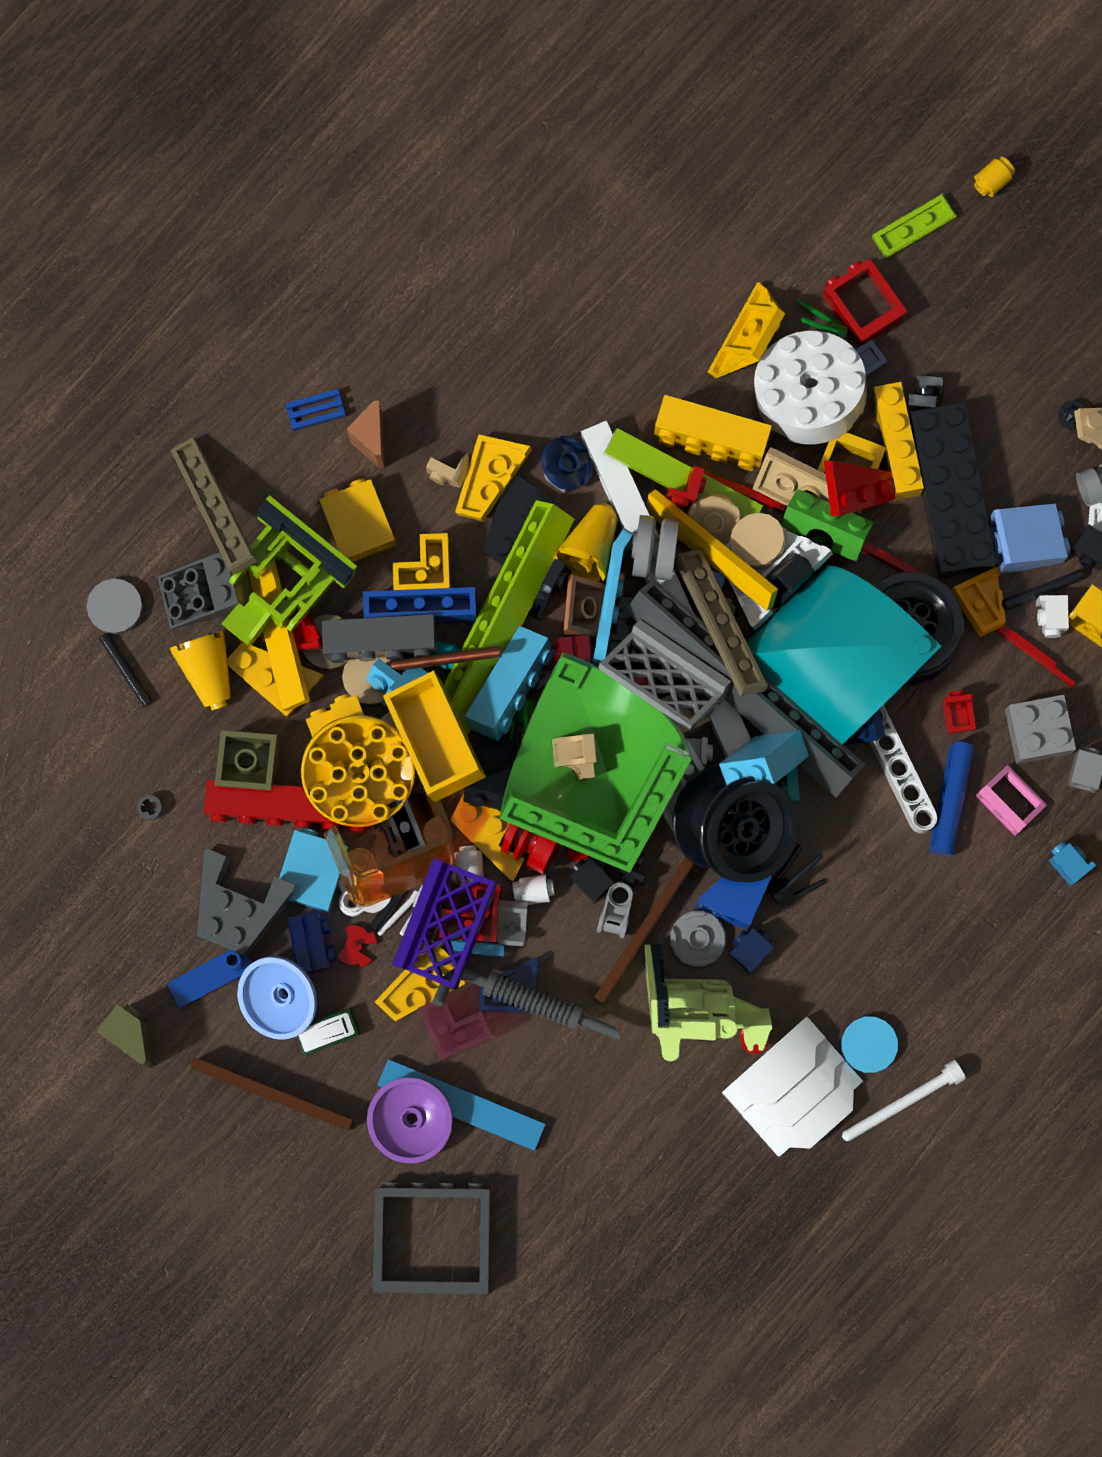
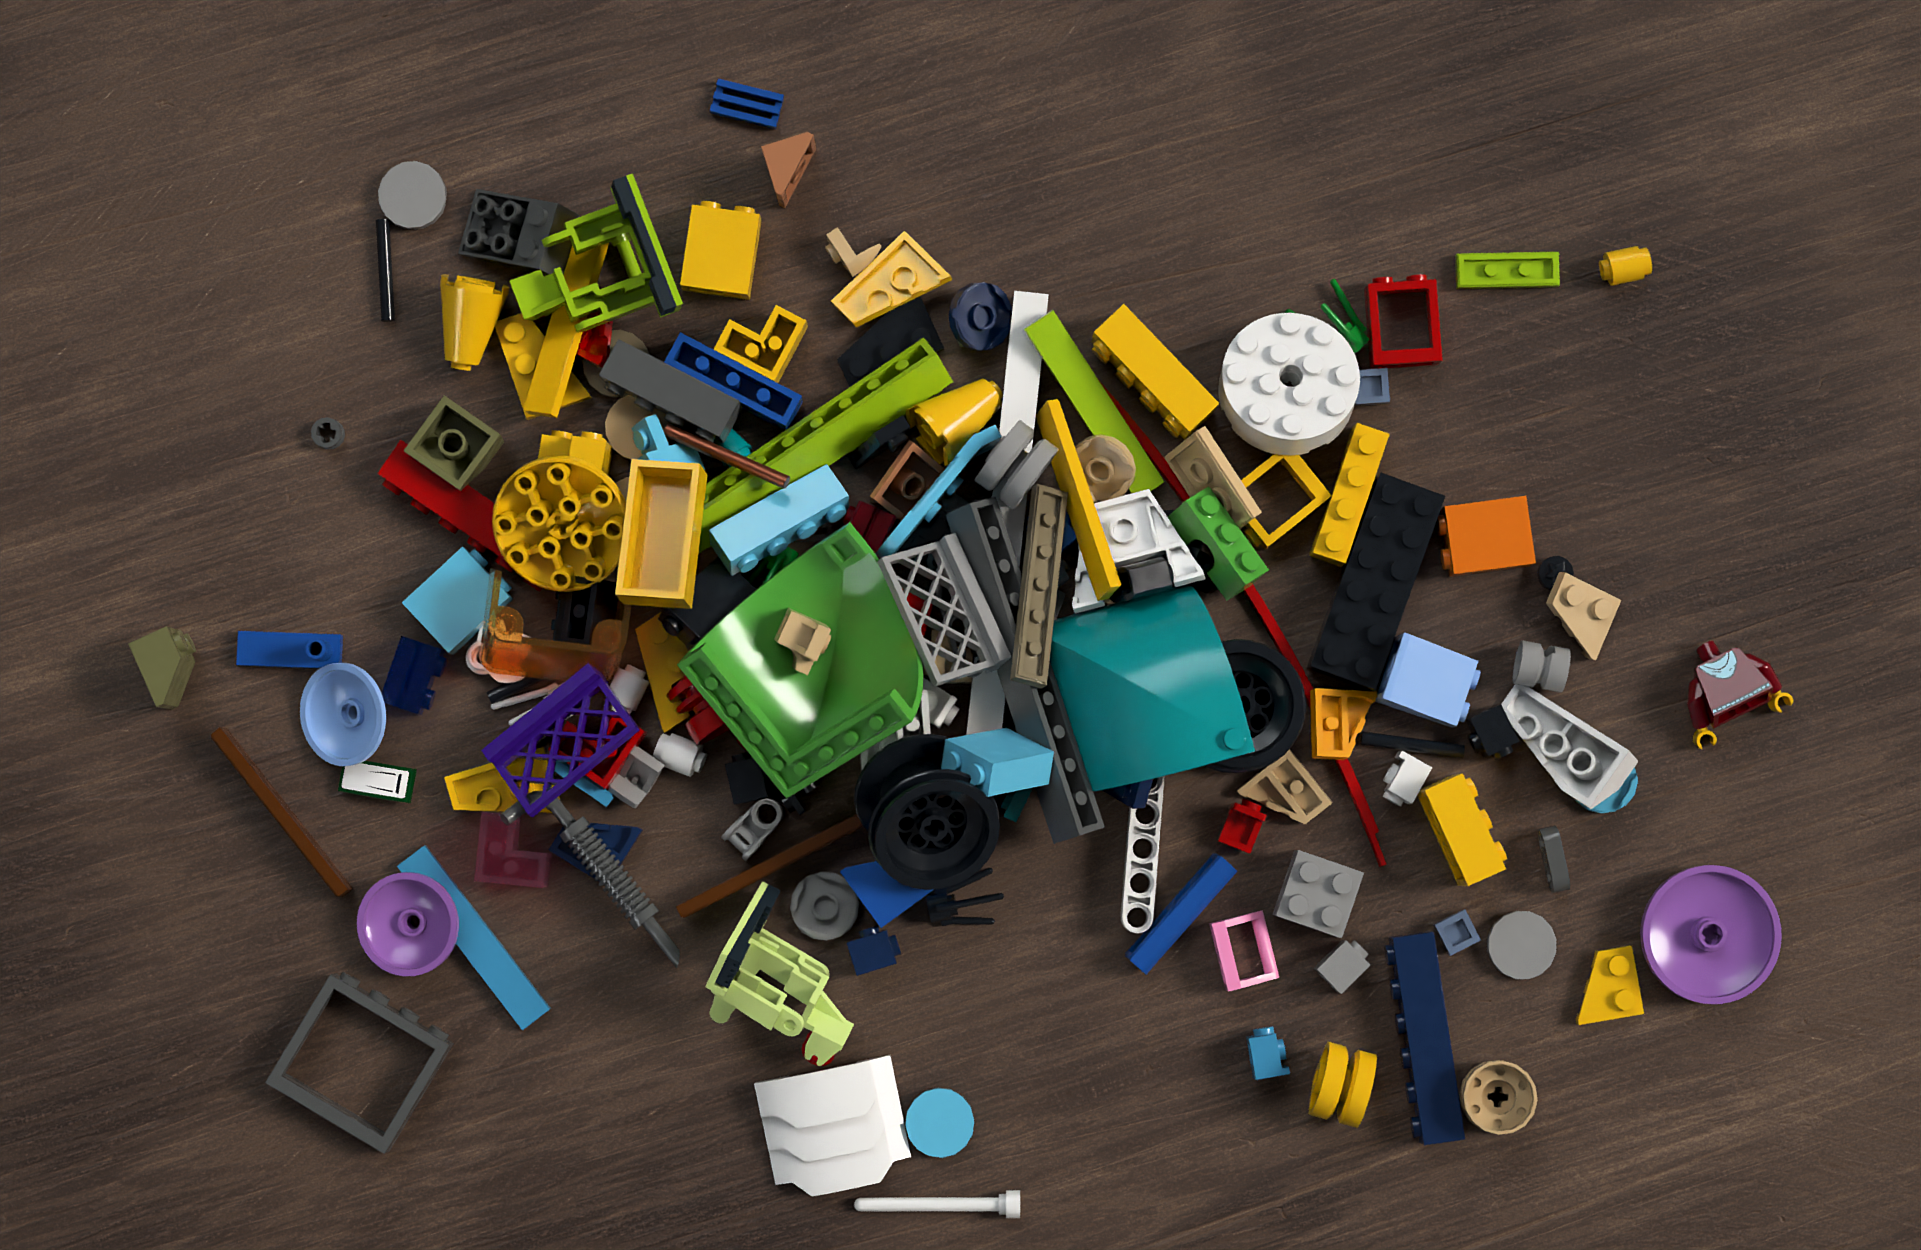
camera: 25 degrees right, 5 degrees up
(213, 506) = (574, 148): dark tan tile -> none
(232, 917) = (344, 599): dark grey wing -> none
(356, 936) = (449, 711): red piece -> none
(694, 485) = (1101, 420): red bracket -> none
(749, 334) = (1259, 287): yellow wing -> none
(758, 540) = (1134, 518): tan tile -> none
(856, 487) = (1271, 523): red wing -> none
(927, 391) = (1413, 461): black bracket -> none
(975, 669) = (1287, 789): none -> tan wing
(1009, 415) = (1486, 536): none -> orange brick

